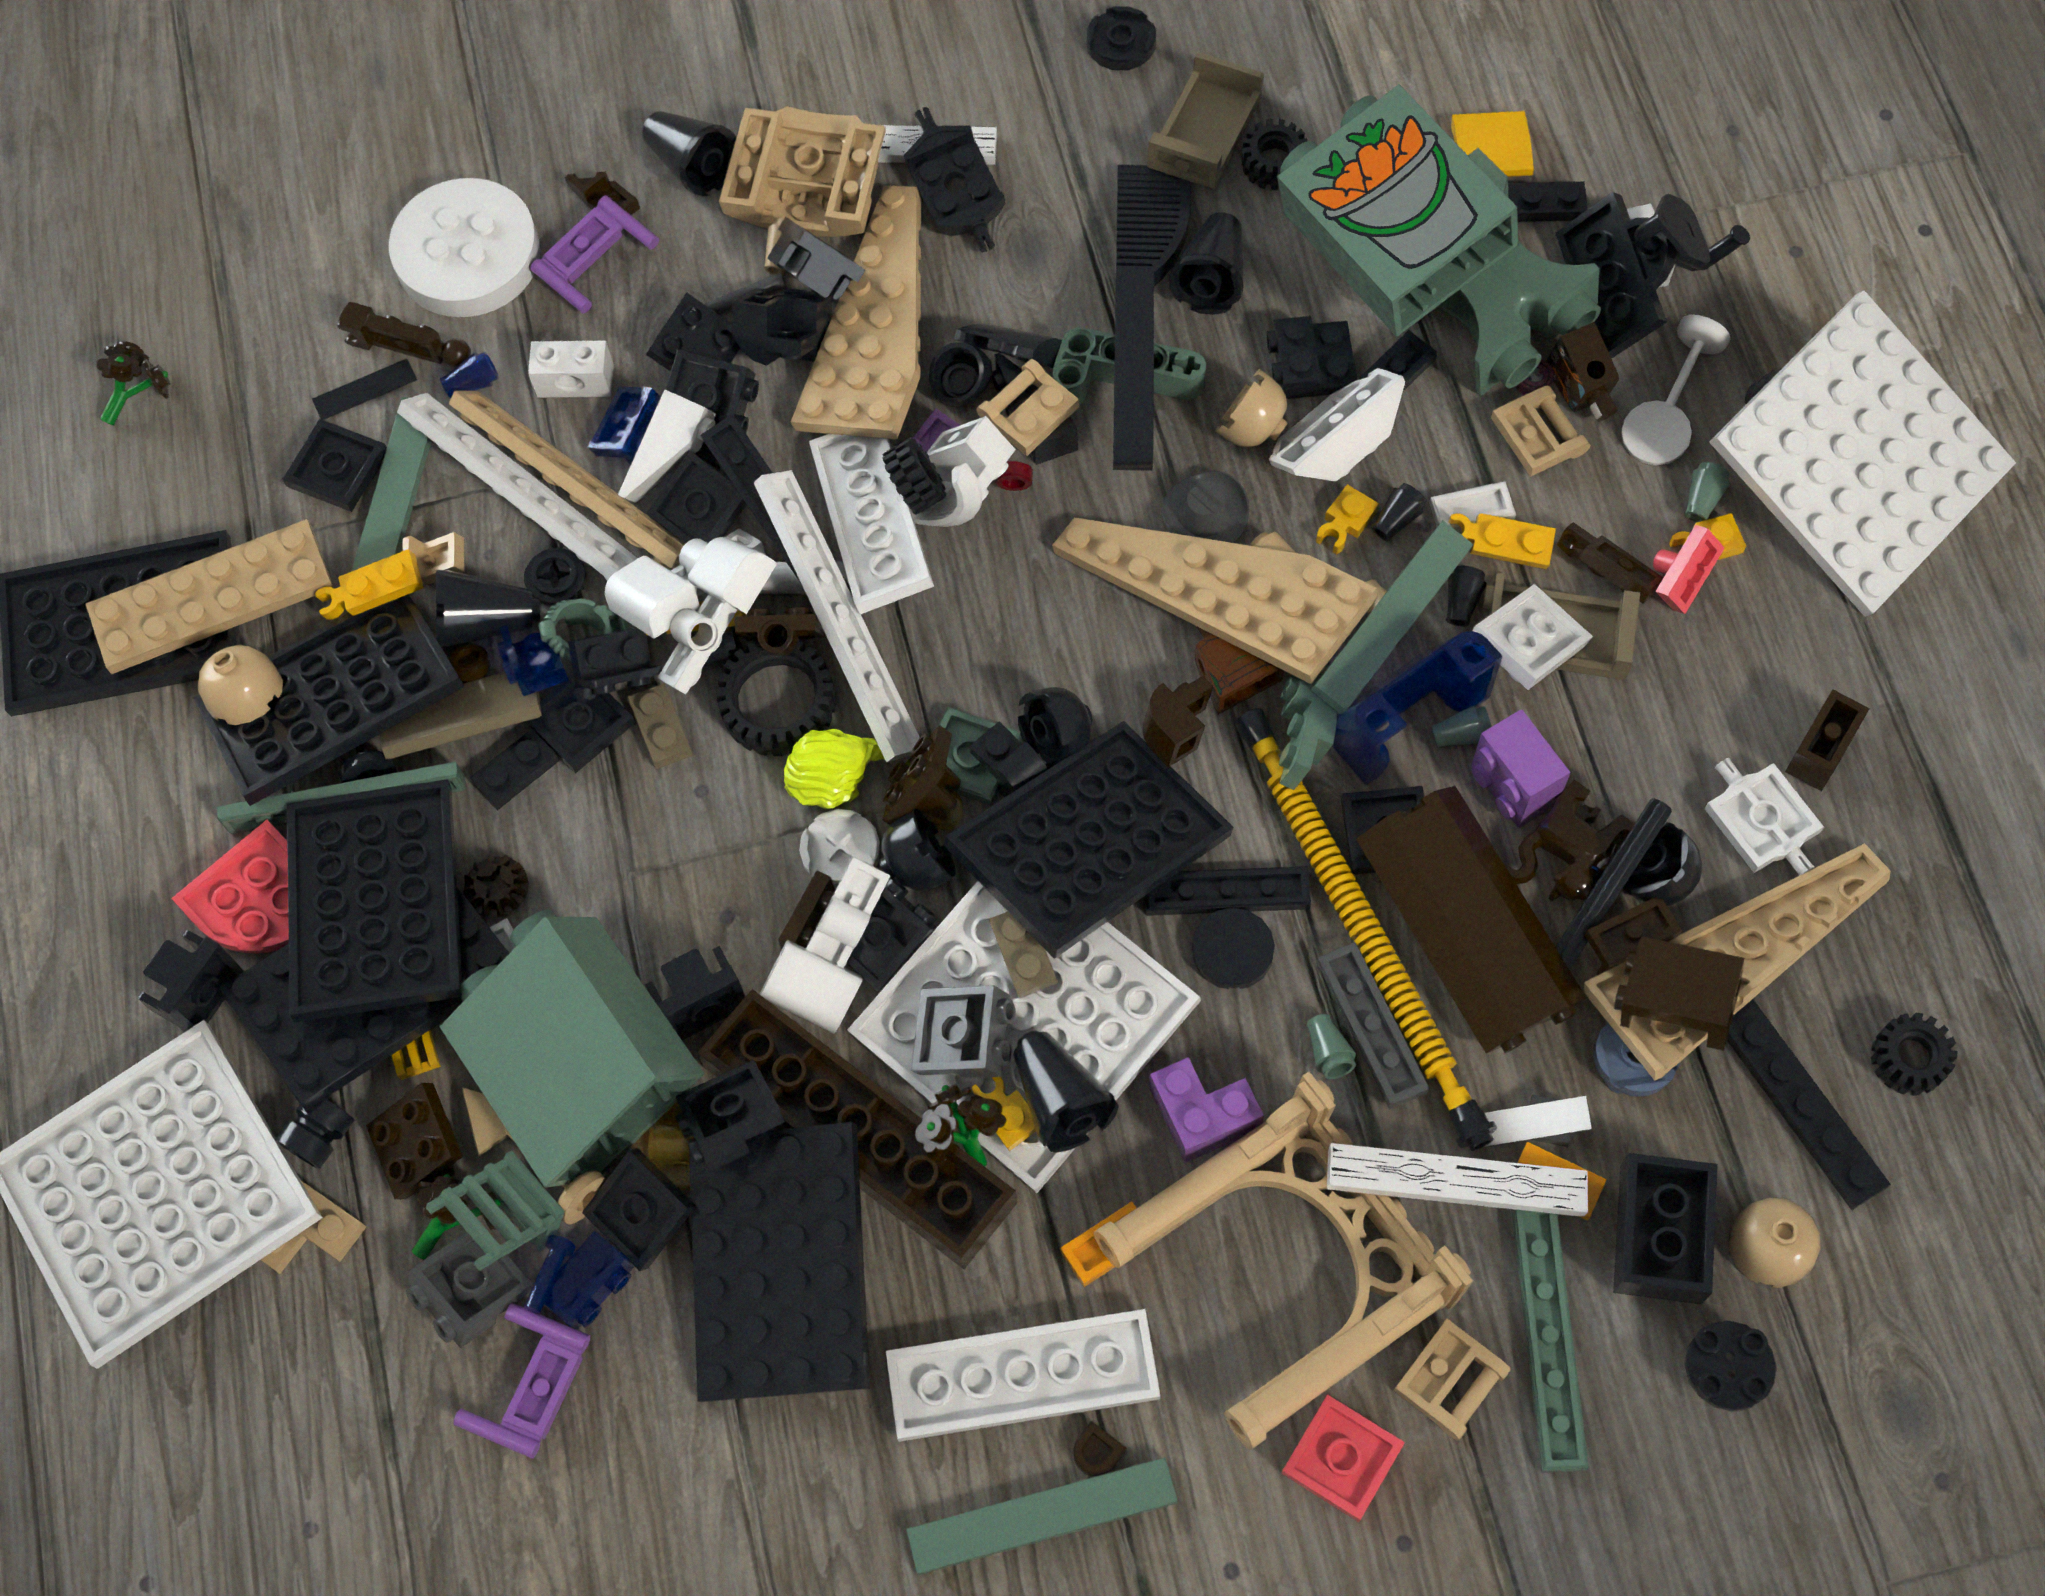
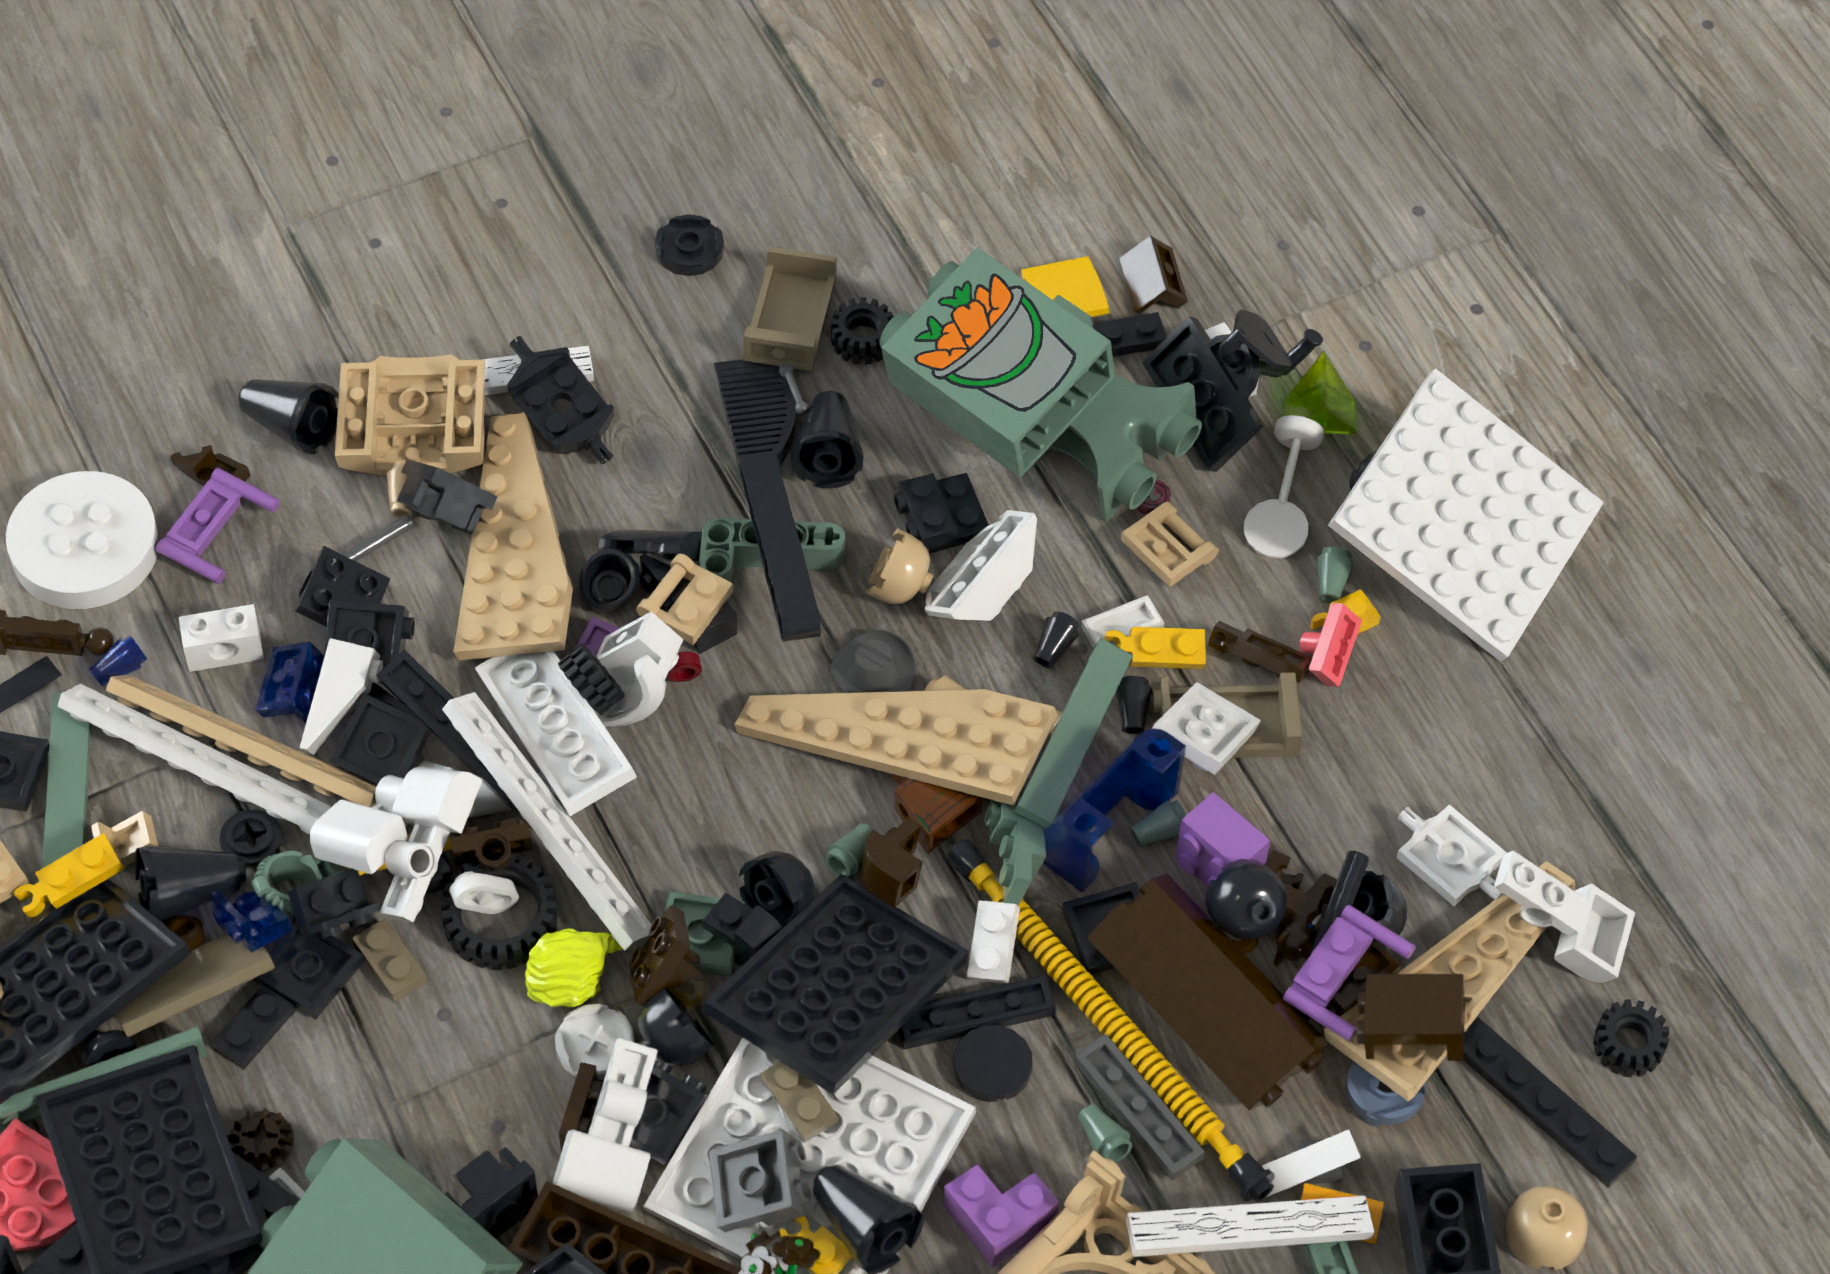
camera: 20 degrees left, 10 degrees down
(761, 676) = (483, 893): none -> white plate
(781, 324) = (424, 562): black brick -> none
(1133, 700) = (847, 853): none -> sand green cone
(1188, 185) = (787, 371): none -> dark grey hinge
(1261, 822) = (993, 942): none -> white plate
(1347, 514) = (1008, 651): yellow plate -> none
(1406, 357) = (1030, 496): black plate -> none
(1531, 830) = (1246, 899): none -> black cylinder
(1584, 371) = (1199, 483): dark brown torso -> none
(1588, 141) = (1152, 275): none -> panel
(1609, 915) = (1332, 964): none -> medium lavender plate
(1738, 302) = (1324, 398): none -> clear neon green slope
(1827, 740) = (1492, 775): dark brown brick -> none
(1895, 916) = (1590, 920): none -> white plate

